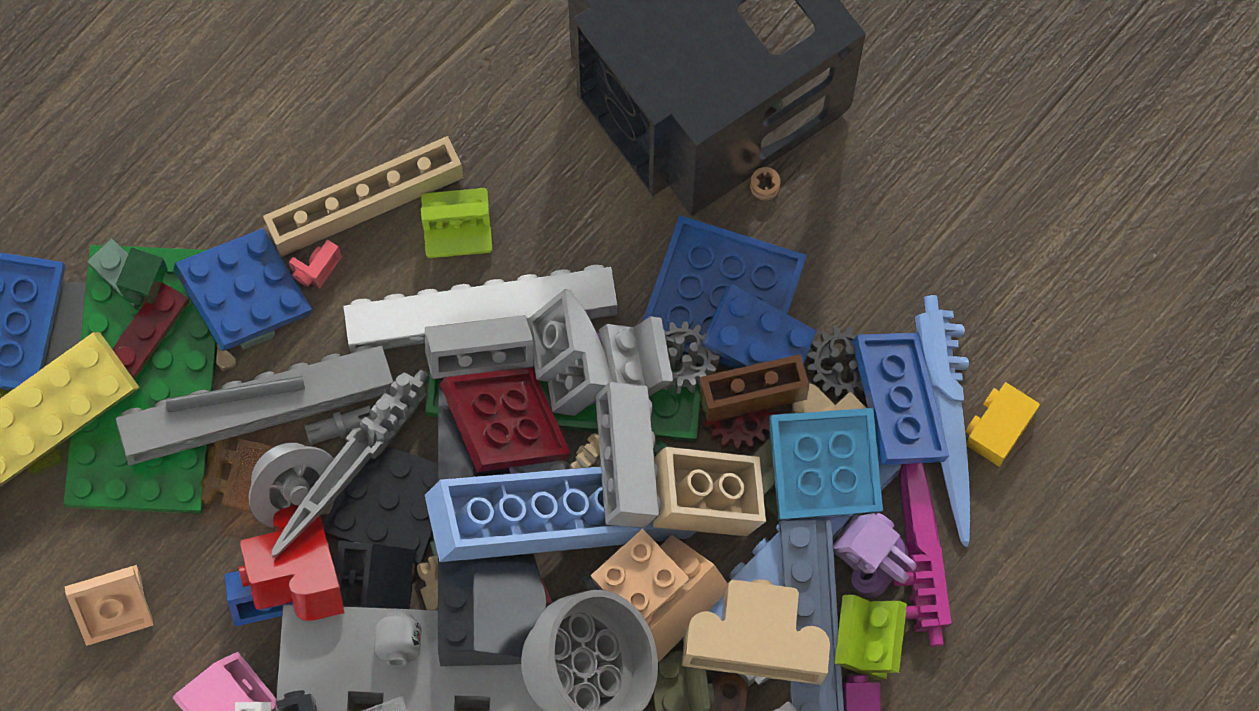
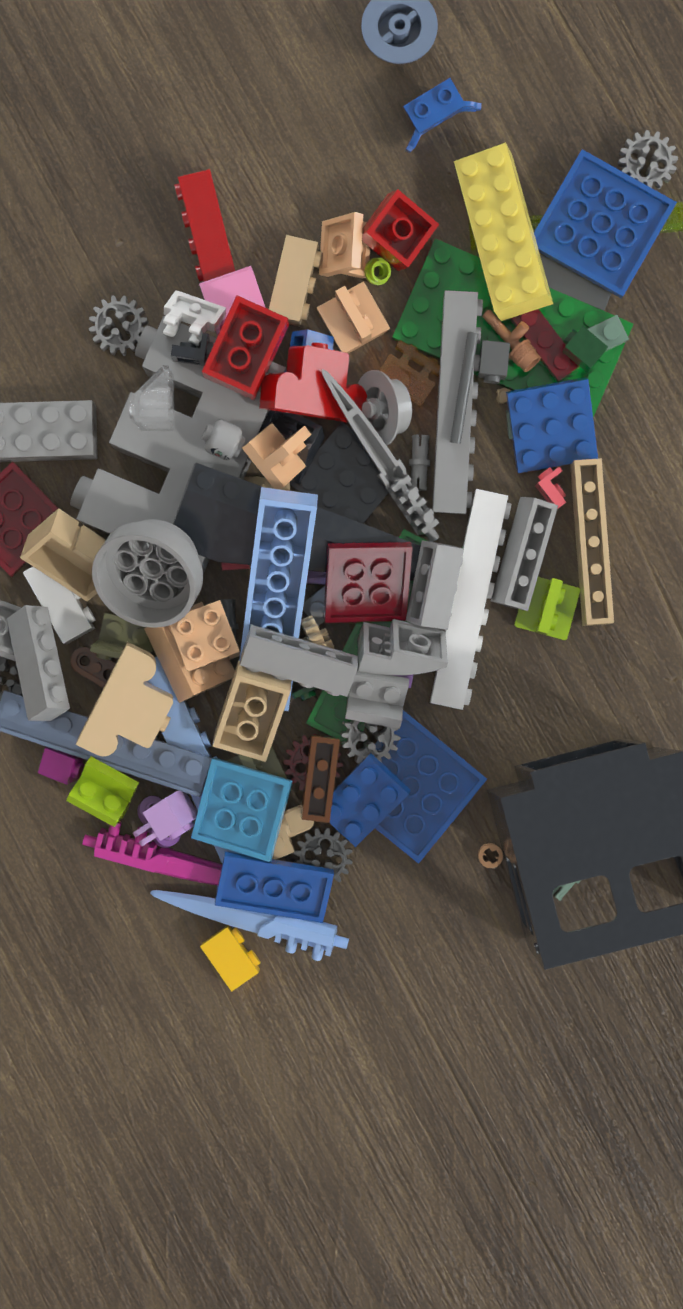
camera: 115 degrees right, 15 degrees up
(68, 543) = (398, 230): none -> red brick
(123, 549) = (384, 271): none -> lime plate
(170, 648) = (295, 279): none -> tan brick
(171, 346) = (522, 353): none -> nougat piece
(190, 375) = (493, 361): none -> dark grey brick
(193, 565) = (353, 317): none -> light nougat bracket
(277, 651) = (245, 347): none -> red brick
(392, 571) = (276, 456): none -> light nougat bracket
(403, 265) = (524, 553): none -> light grey brick

